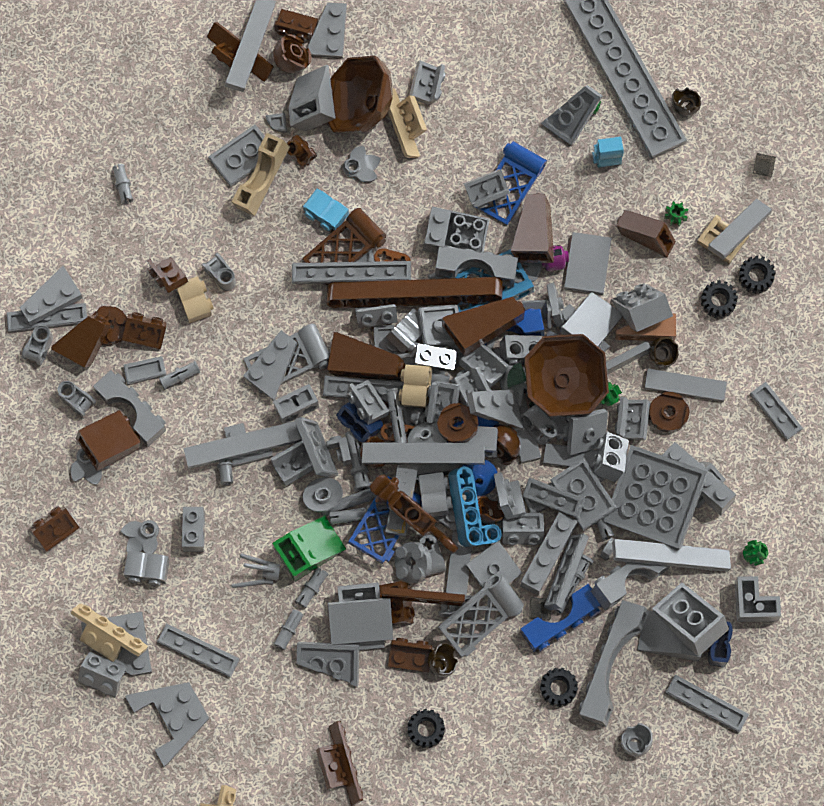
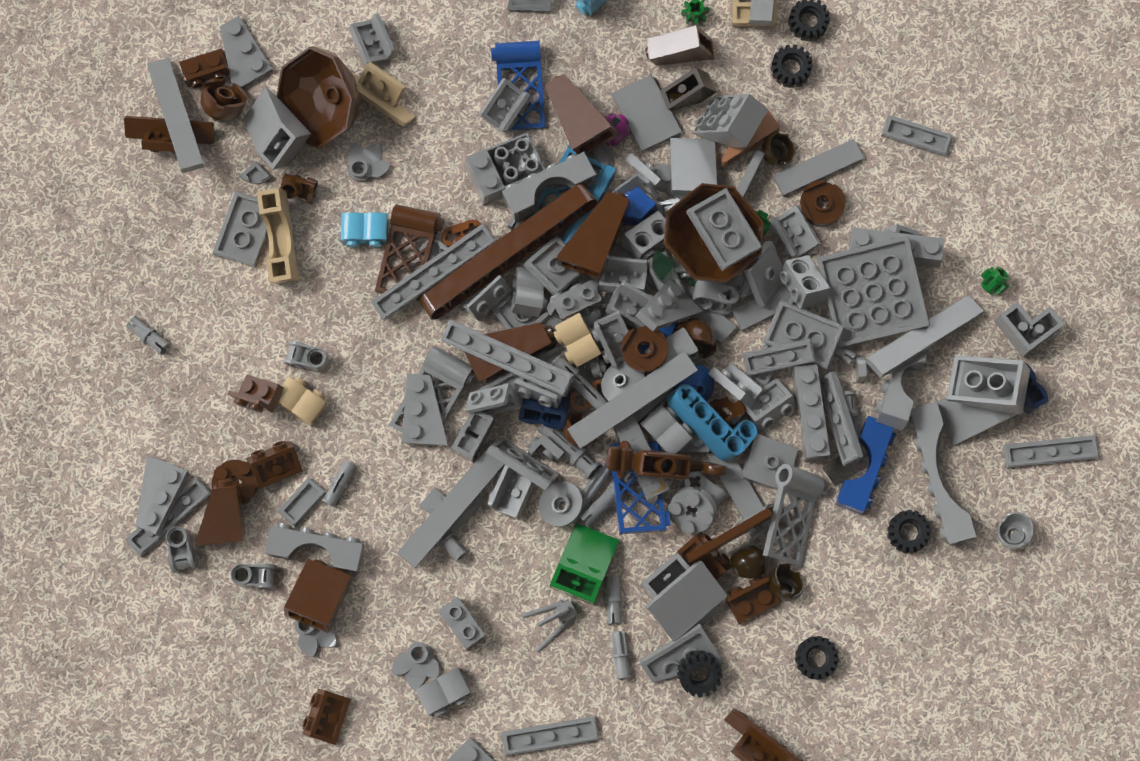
camera: 35 degrees left, 5 degrees up
(325, 688) = (704, 686): none -> black tyre
(327, 388) = (493, 400): none -> light grey bracket
(358, 365) = (508, 357): none -> light grey tile
(426, 627) = (749, 561): none -> dark brown hair
(574, 377) = (724, 229): none -> light grey tile
(630, 266) = (688, 89): none -> dark brown slope

